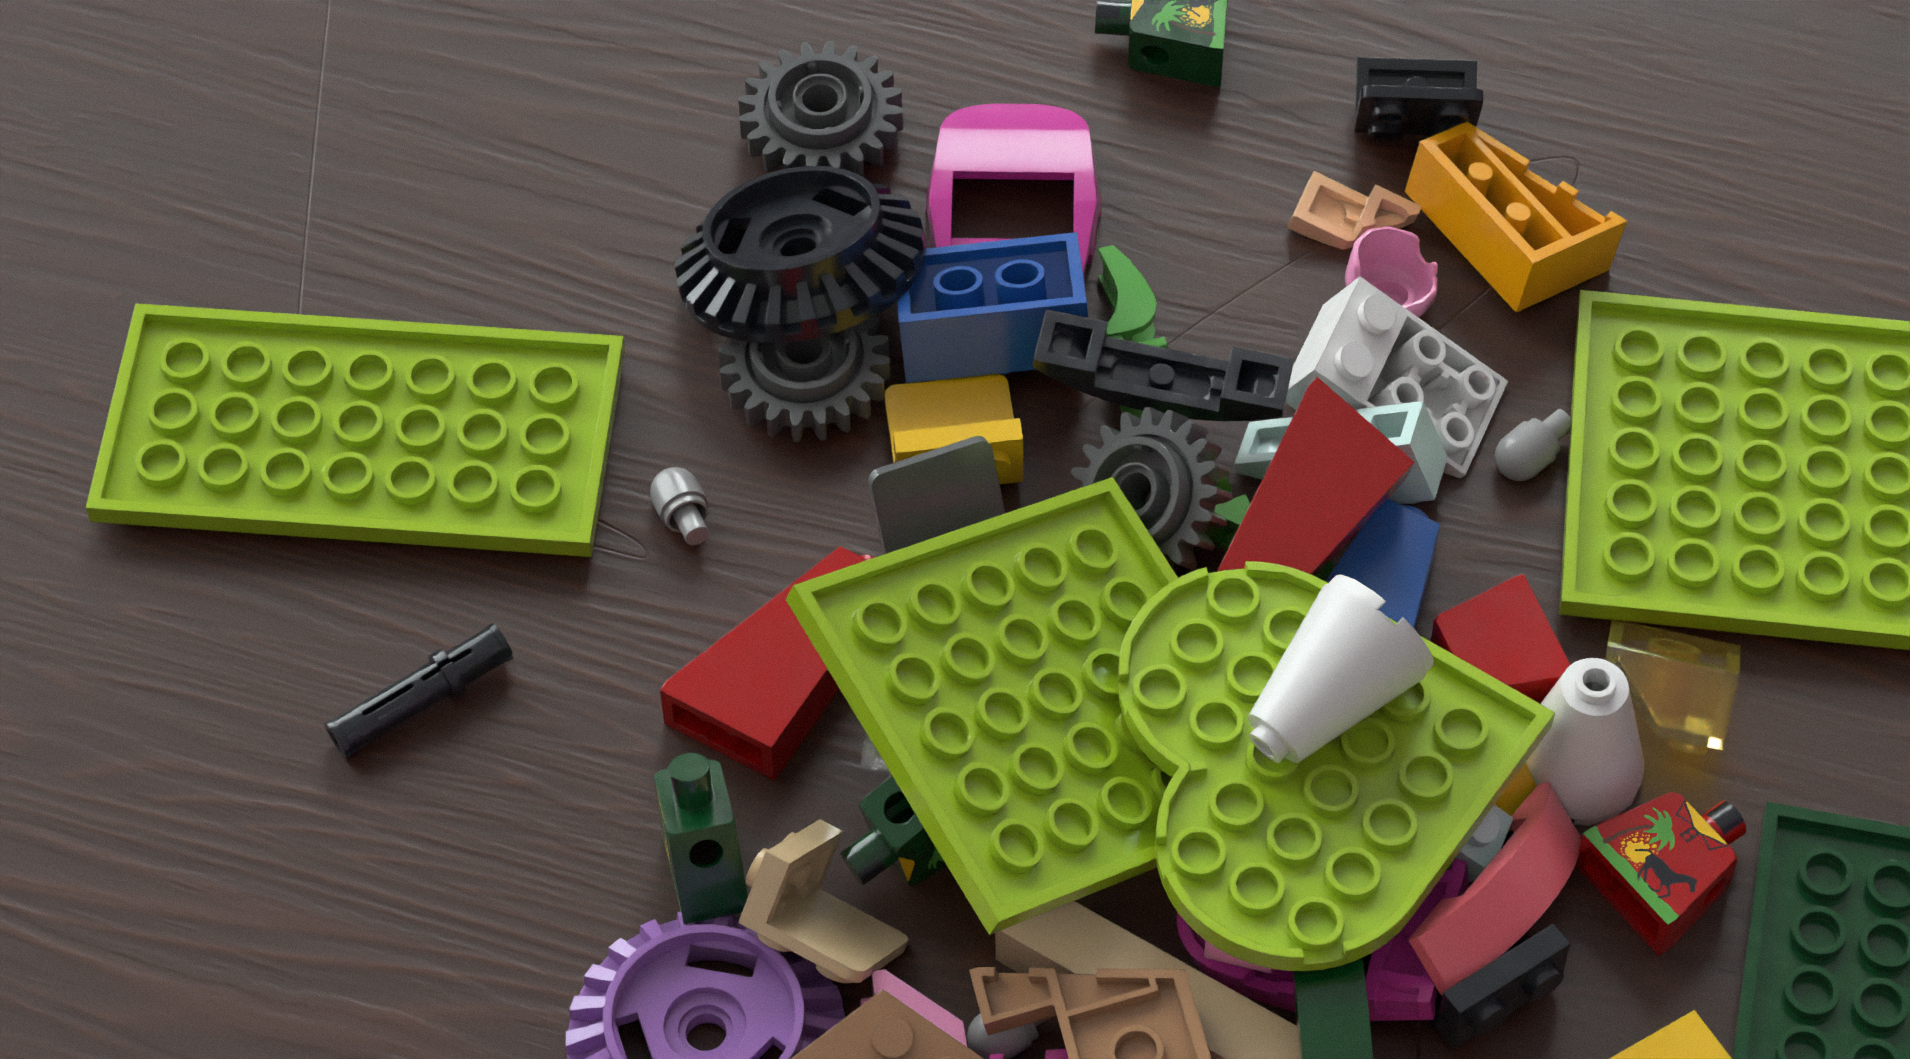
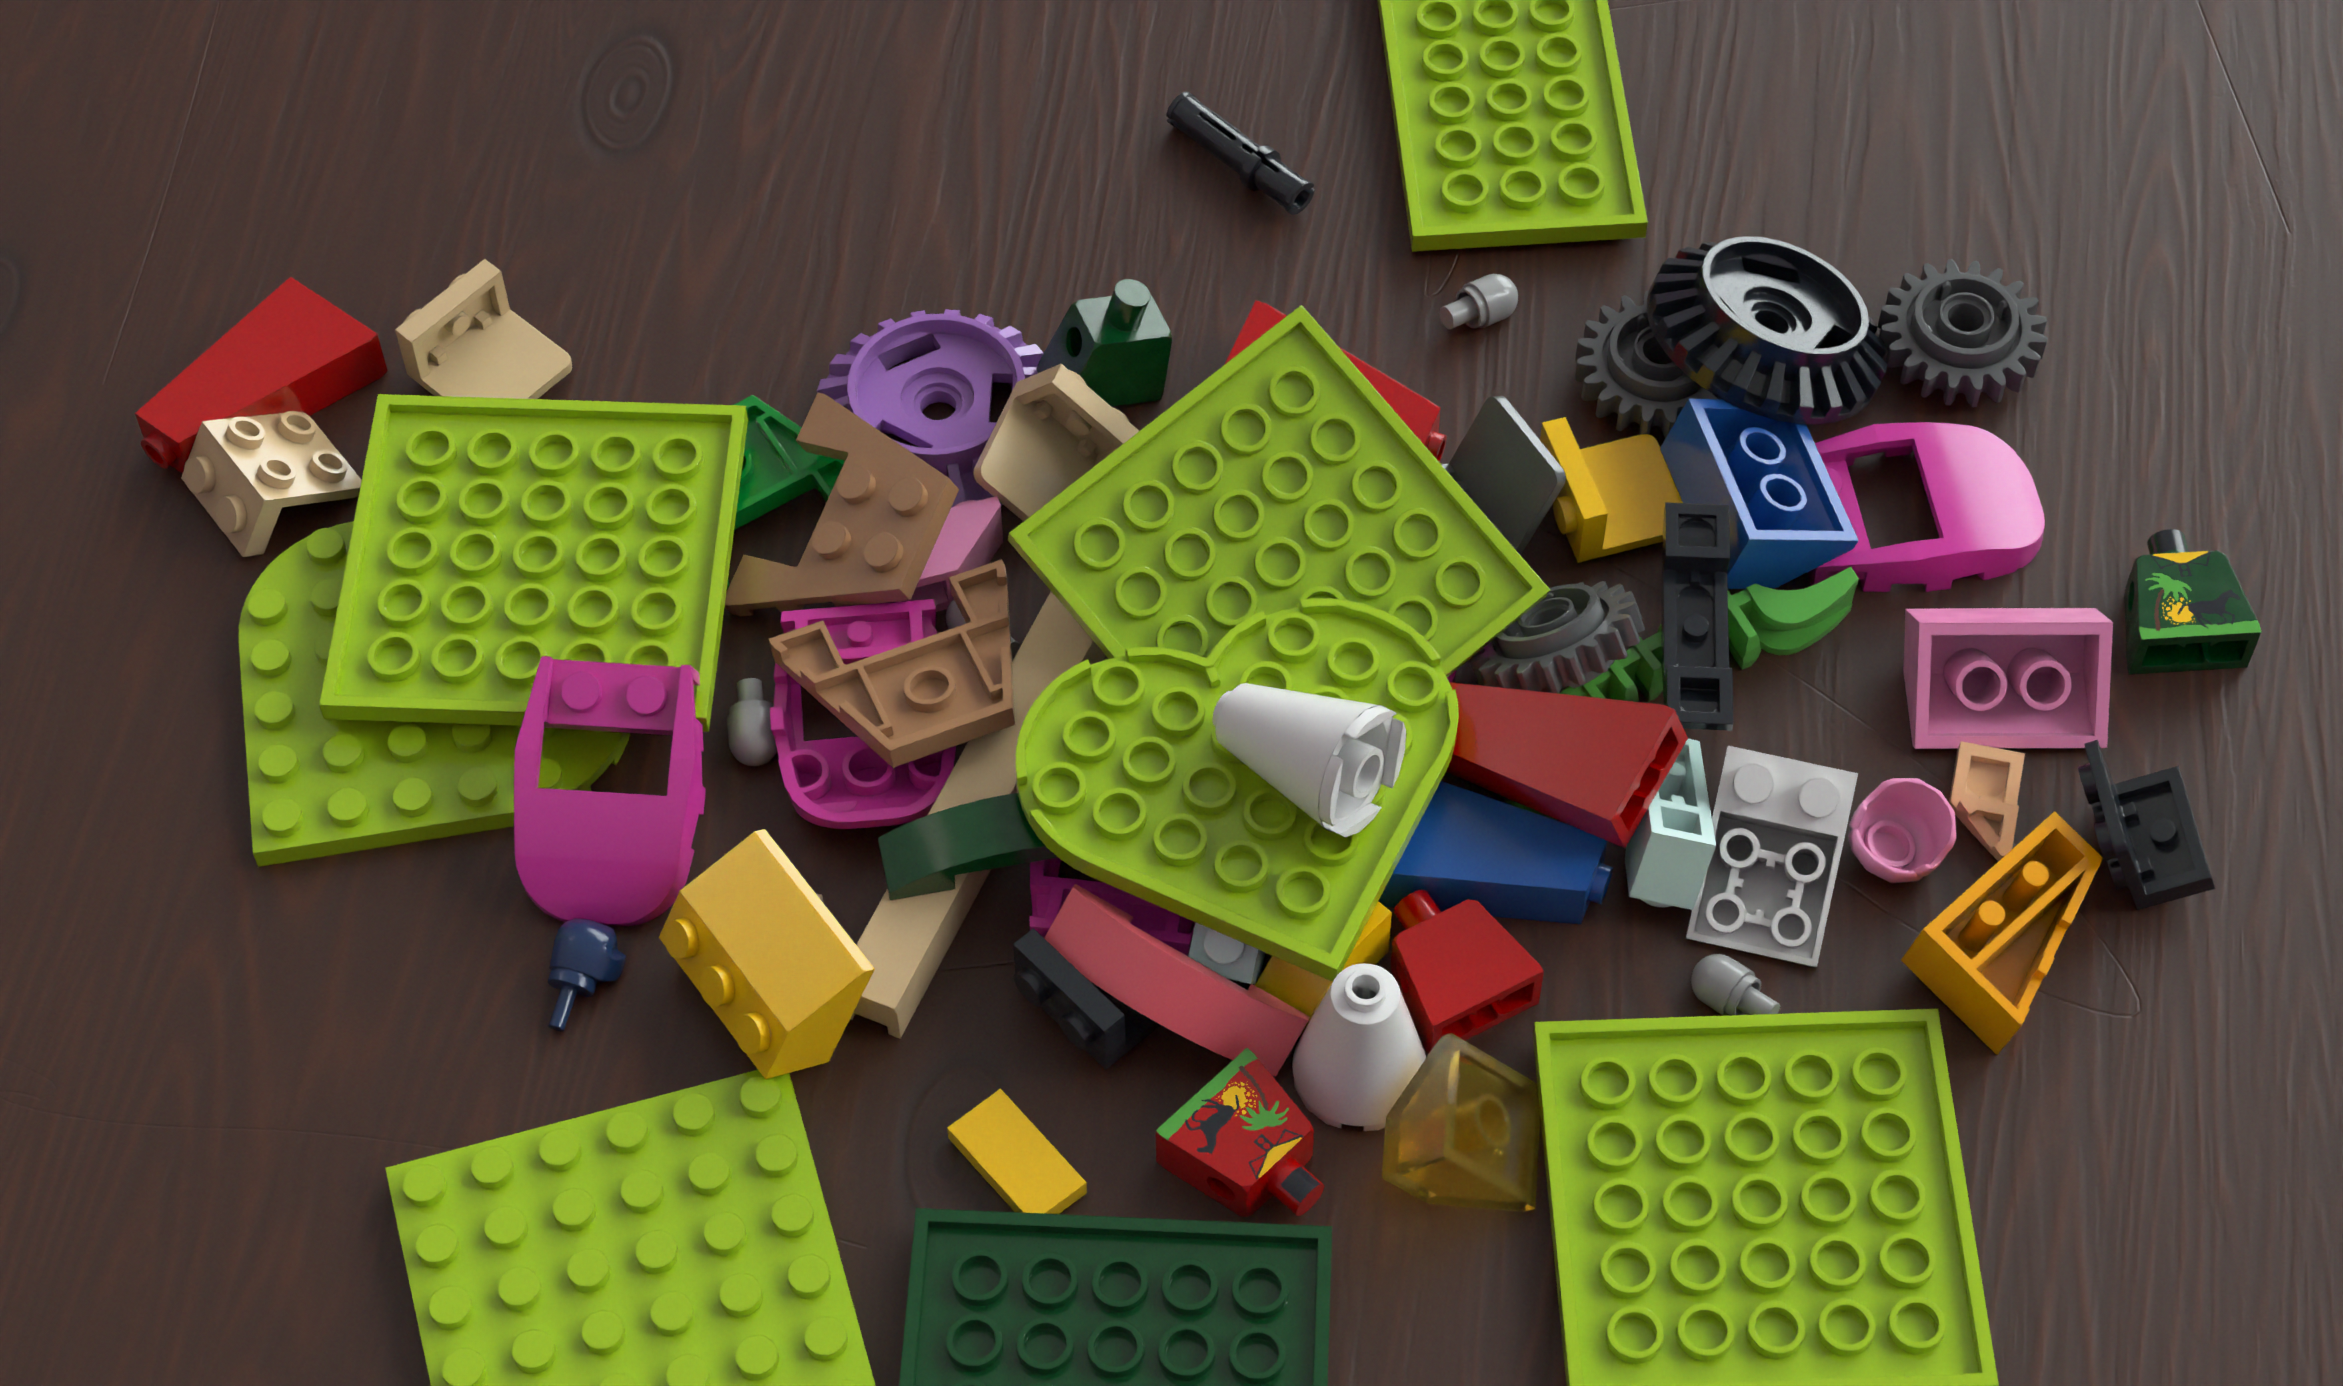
camera: 80 degrees right, 0 degrees up
(1225, 164) = (2007, 677): none -> bright pink slope

